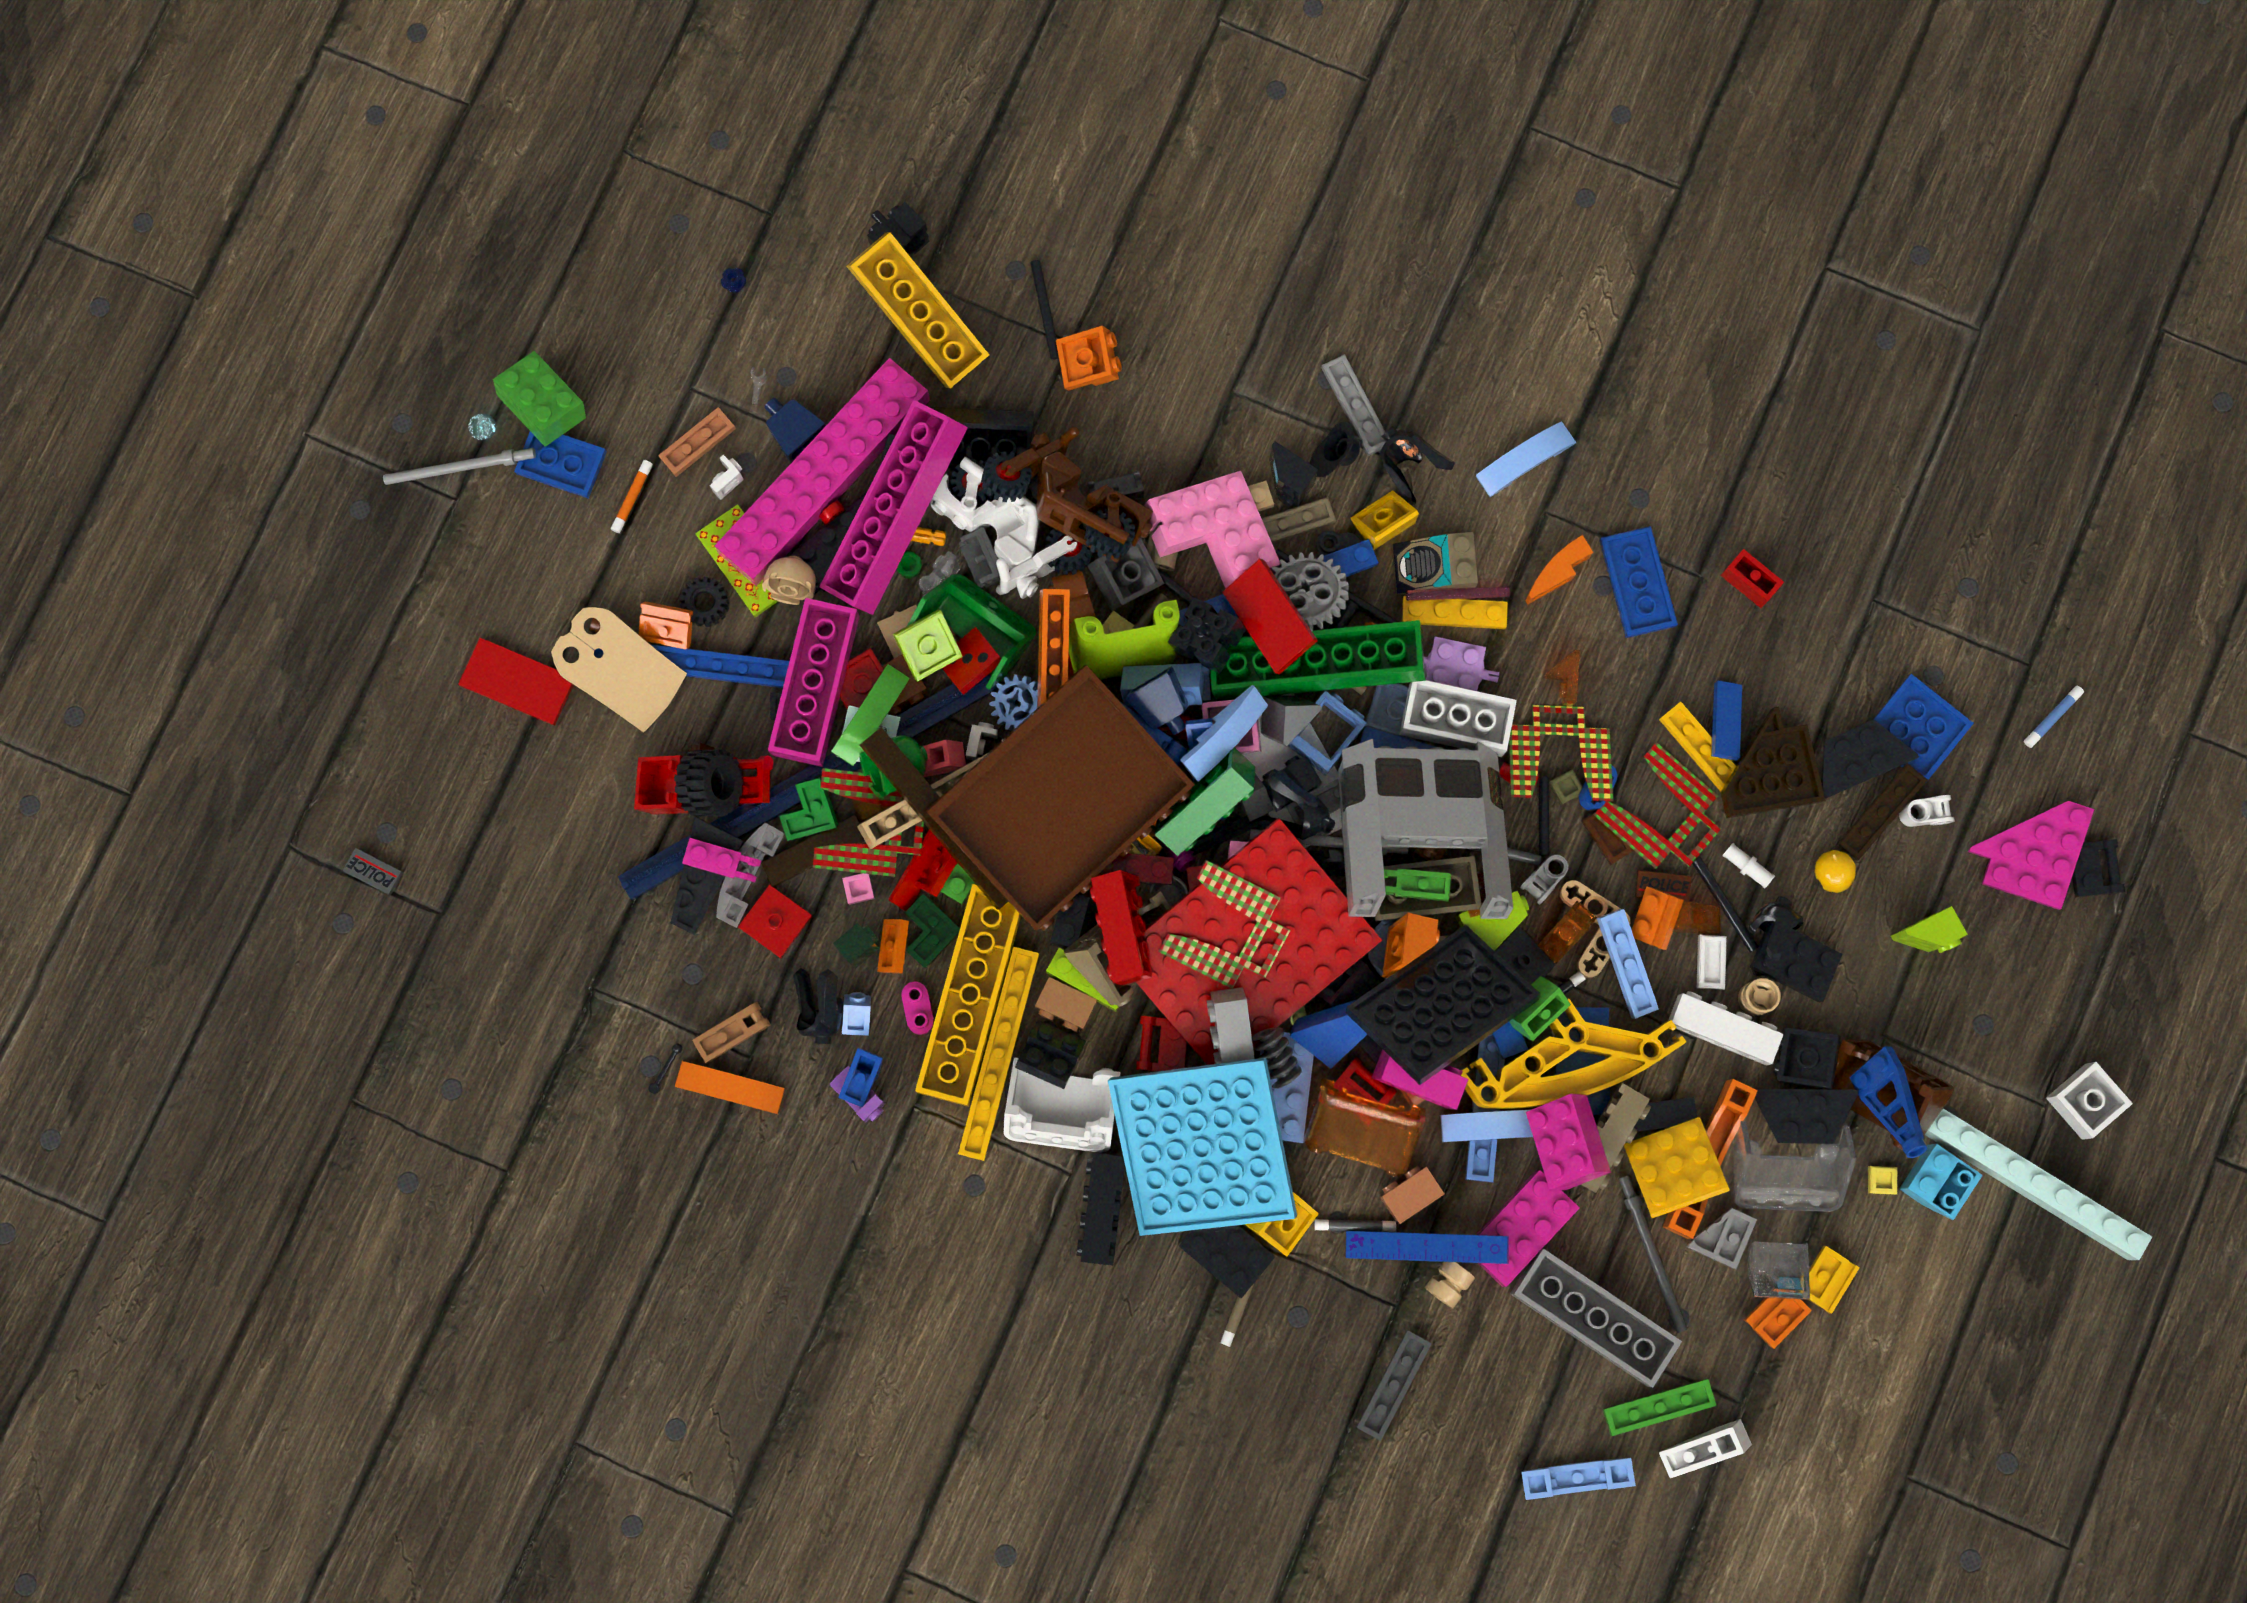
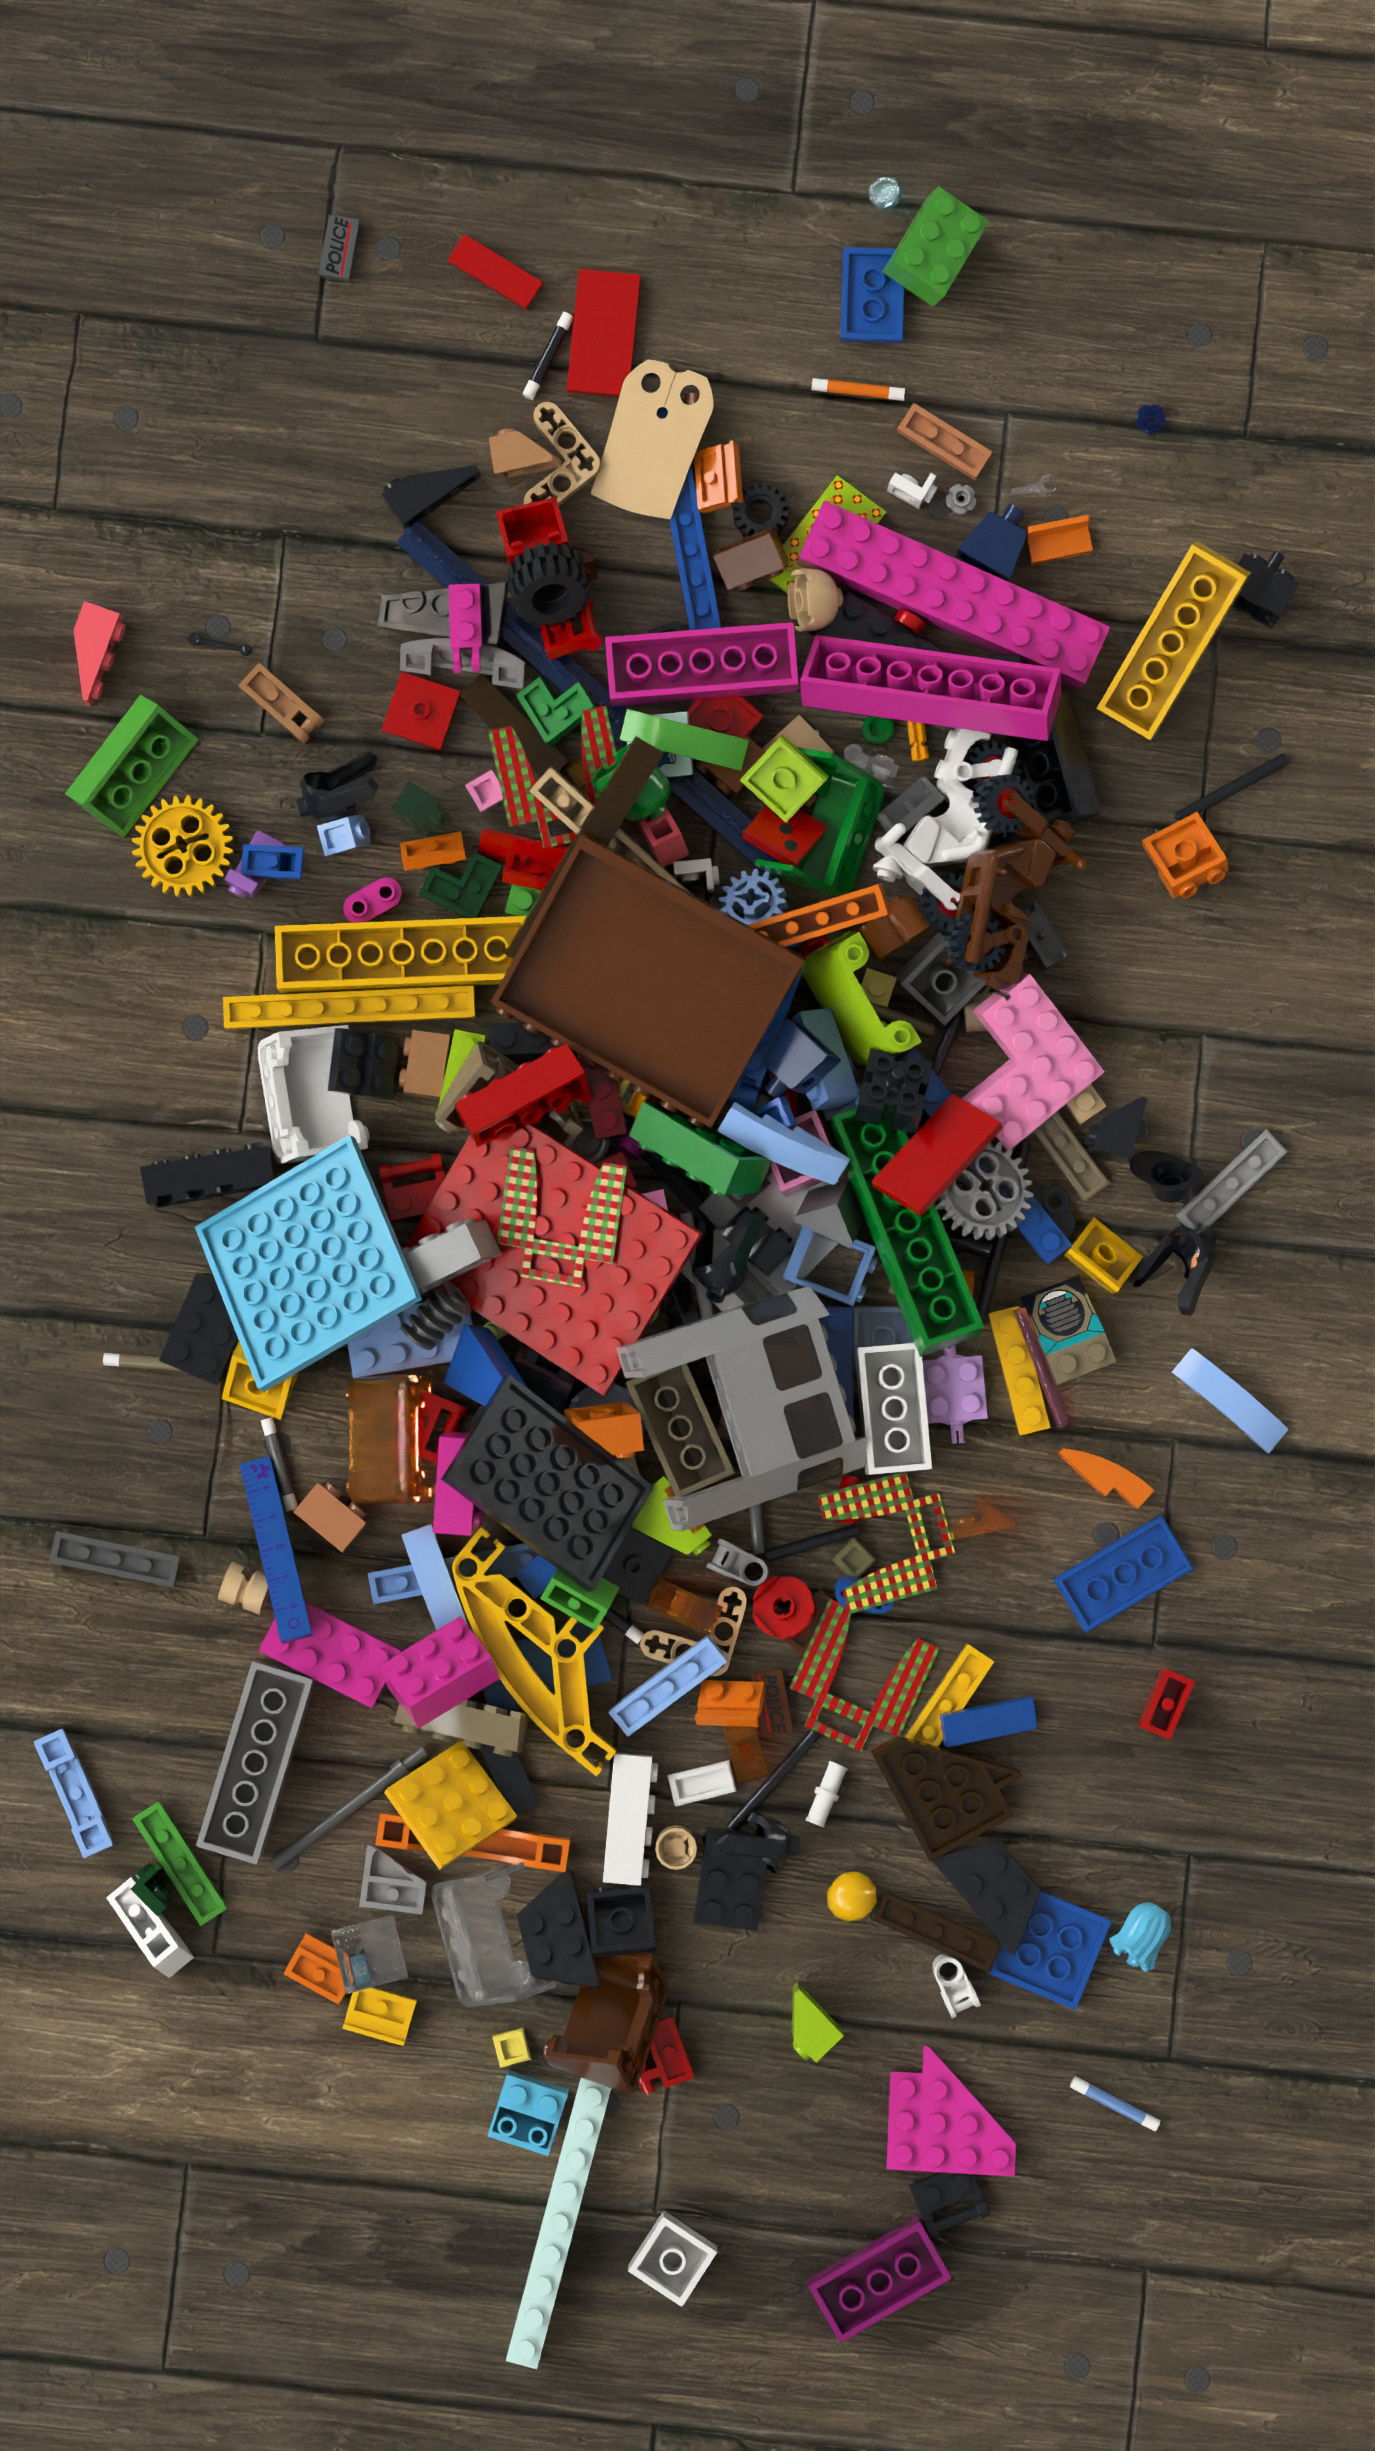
camera: 70 degrees right, 5 degrees up
(437, 752) = (495, 272): none -> red tile
(507, 457) = (856, 233): light grey bar -> none
(521, 732) = (548, 355): none -> black bar
(593, 777) = (518, 455): none -> medium nougat slope
(597, 865) = (425, 492): none -> black slope
(617, 740) = (570, 467): none -> tan beam
(626, 1169) = (94, 640): none -> coral slope
(729, 1087) = (220, 722): orange slope -> none
(741, 618) = (751, 559): none -> reddish brown brick
(742, 1171) = (132, 766): none -> bright green slope
(748, 450) = (957, 506): none -> light grey plate
(798, 1152) = (172, 820): none -> yellow gear
(806, 378) = (1059, 540): none -> orange panel
(1419, 884) = (679, 1416): bright green hinge -> none
(1596, 838) = (801, 1609): none -> red plate
(1677, 1436) = (152, 1894): none -> dark green bracket
(1871, 1079) = (614, 1996): blue plate -> none
(1926, 1054) = (669, 2056): none -> red plate
(1929, 652) = (1143, 1935): none -> medium azure piece
(2147, 941) = (878, 2279): none -> magenta brick

